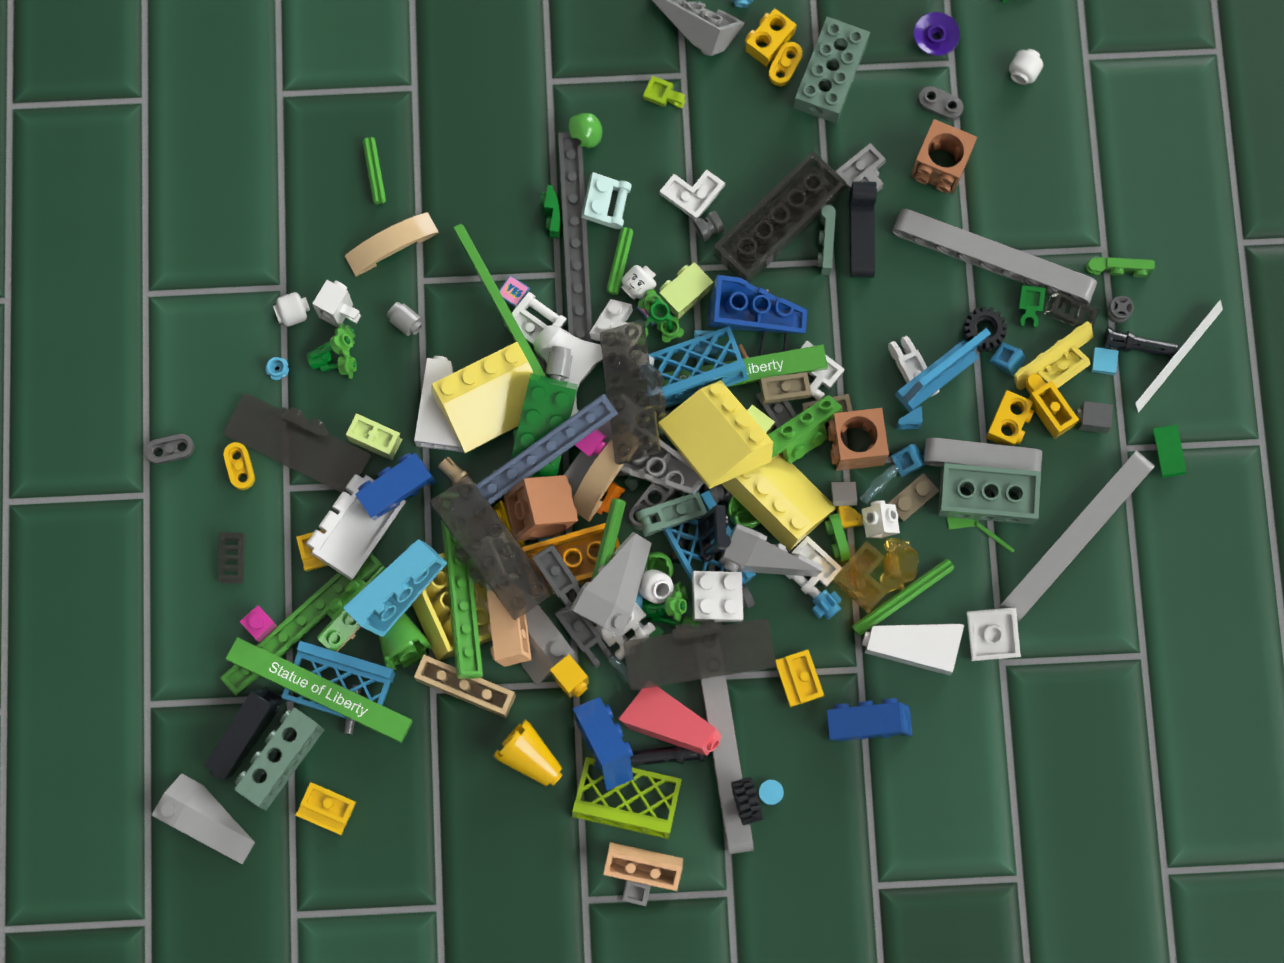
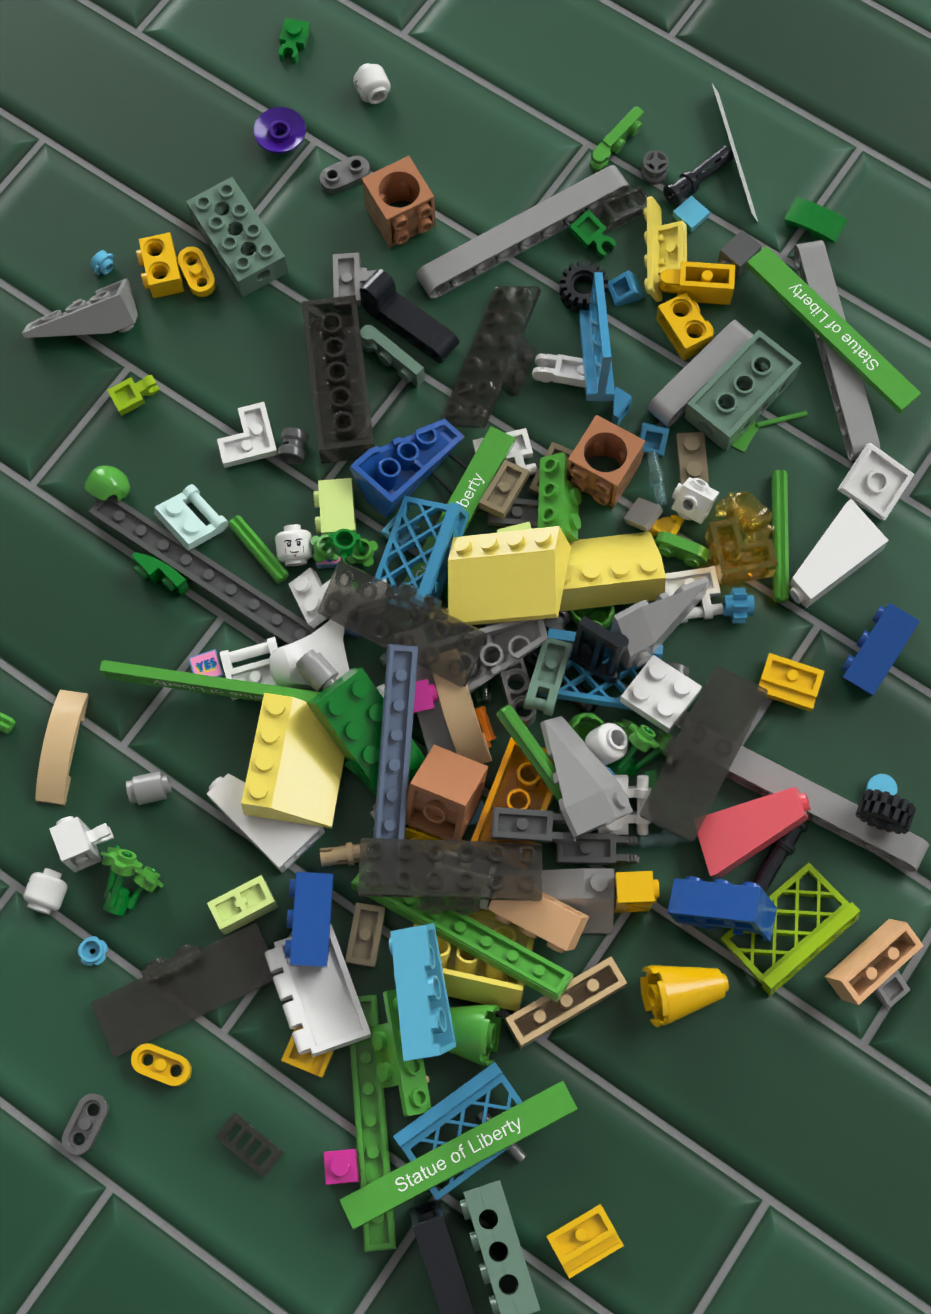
camera: 50 degrees left, 5 degrees down
(414, 528) = (365, 935): none -> dark tan plate
(882, 311) = (496, 357): none -> clear smoke bracket
(1085, 522) = (833, 330): none -> bright green tile

